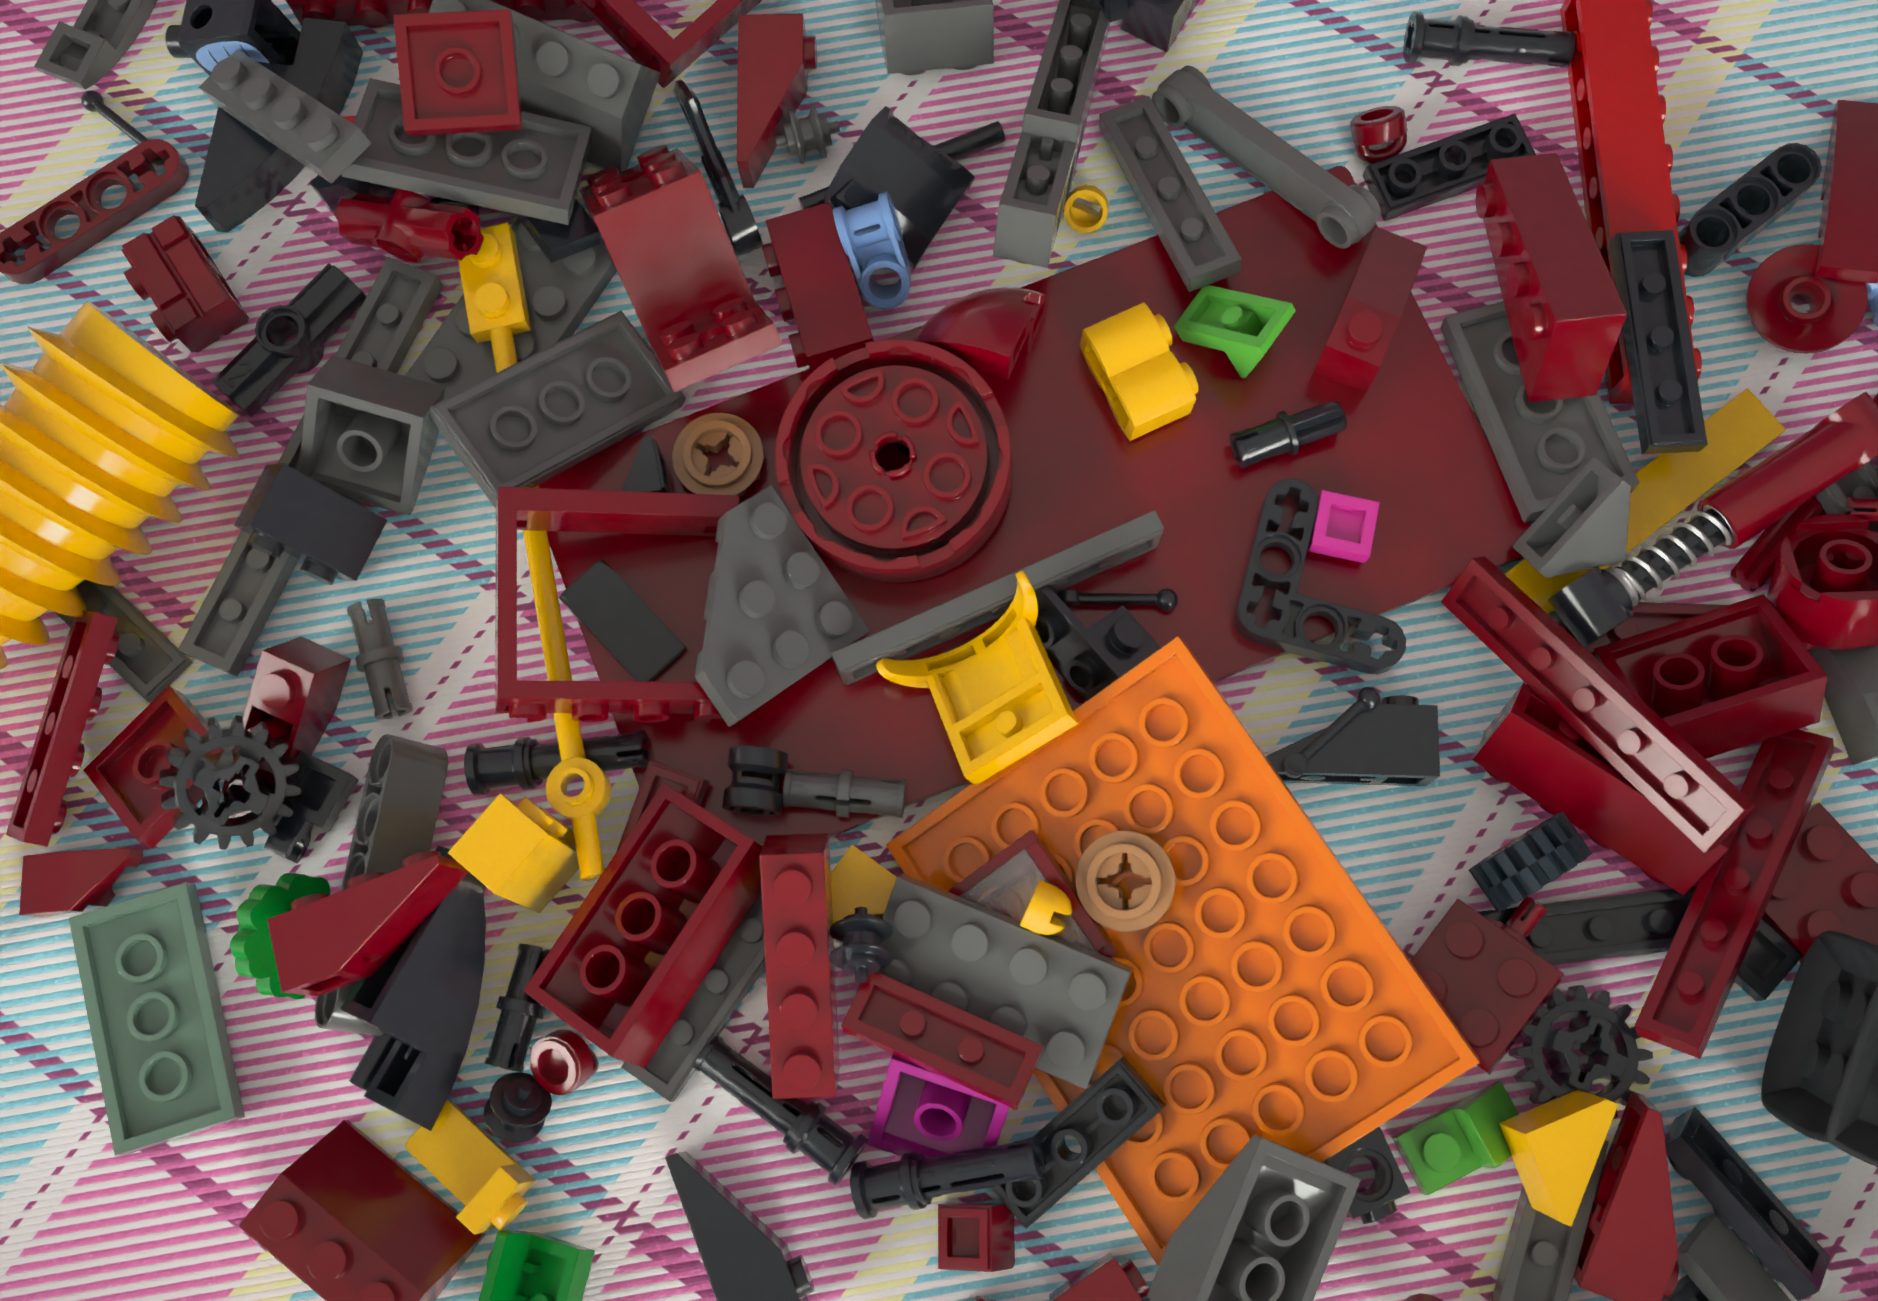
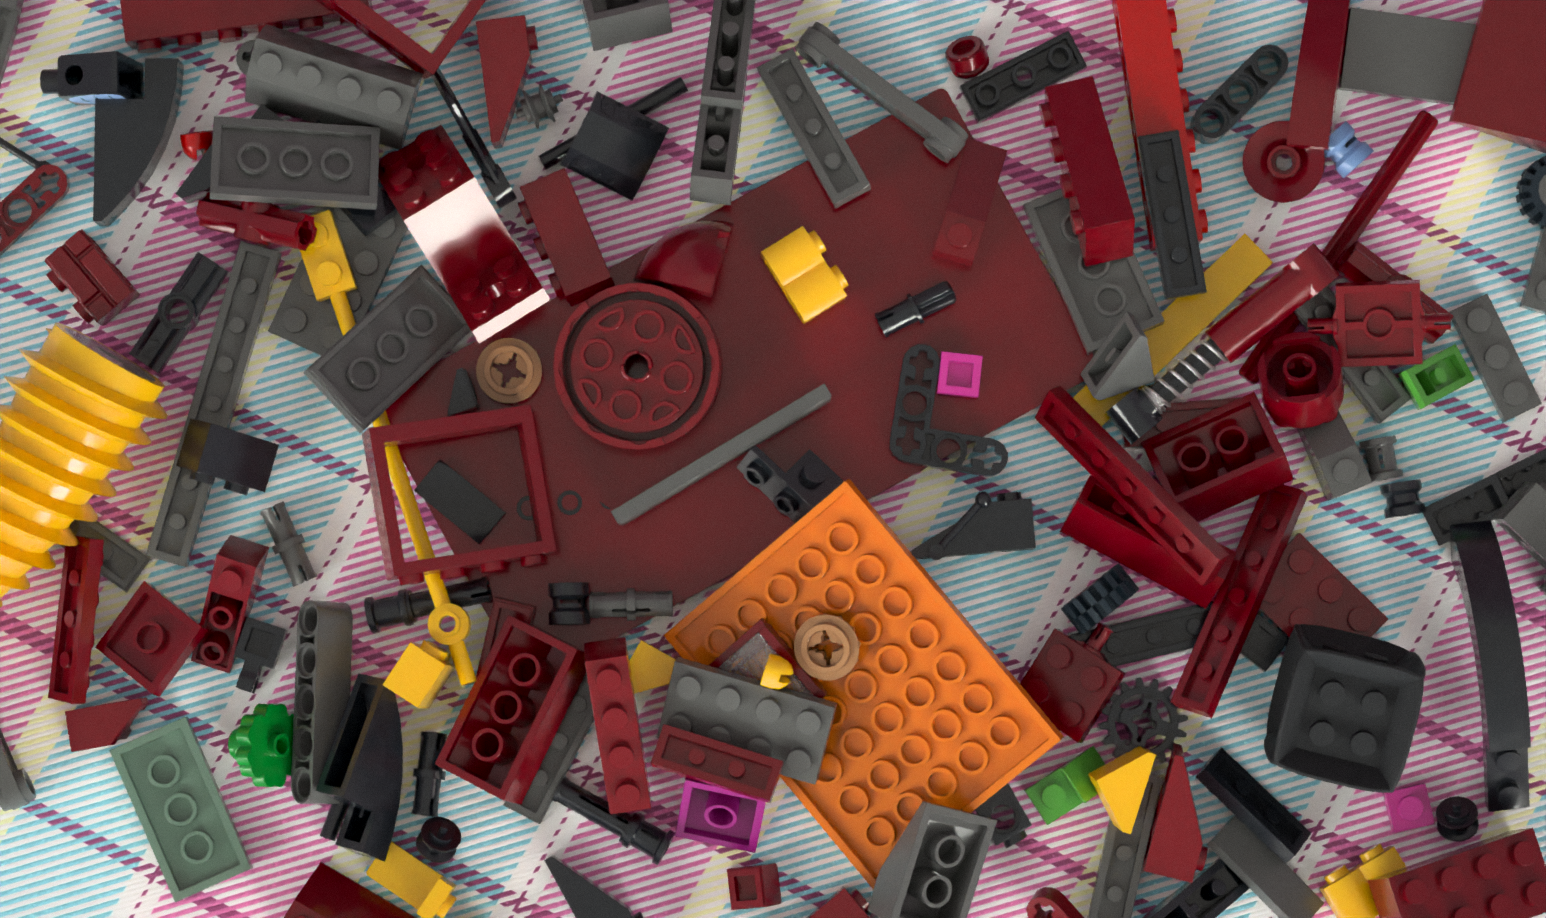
camera: 10 degrees left, 10 degrees up
(206, 770) = (210, 641): black gear -> none
(285, 115) = (157, 154): dark grey plate -> none
(355, 931) = (321, 740): dark red slope -> none
(368, 433) = (258, 384): dark grey slope -> none
(458, 72) = (285, 114): dark red plate -> none
(562, 1062) = (463, 806): dark red tile -> none
(768, 609) = (563, 484): dark grey plate -> none
(861, 944) = (656, 709): black wheel -> none
(875, 241) = (601, 199): medium blue piece -> none
(920, 1179) = (713, 854): black pin -> none
(993, 691) = (724, 525): yellow piece -> none
(1082, 217) = (754, 143): yellow hinge -> none
(1100, 1121) = (826, 804): black tile -> none
(1165, 599) = (839, 440): black hinge -> none
(1234, 323) = (868, 233): bright green slope -> none

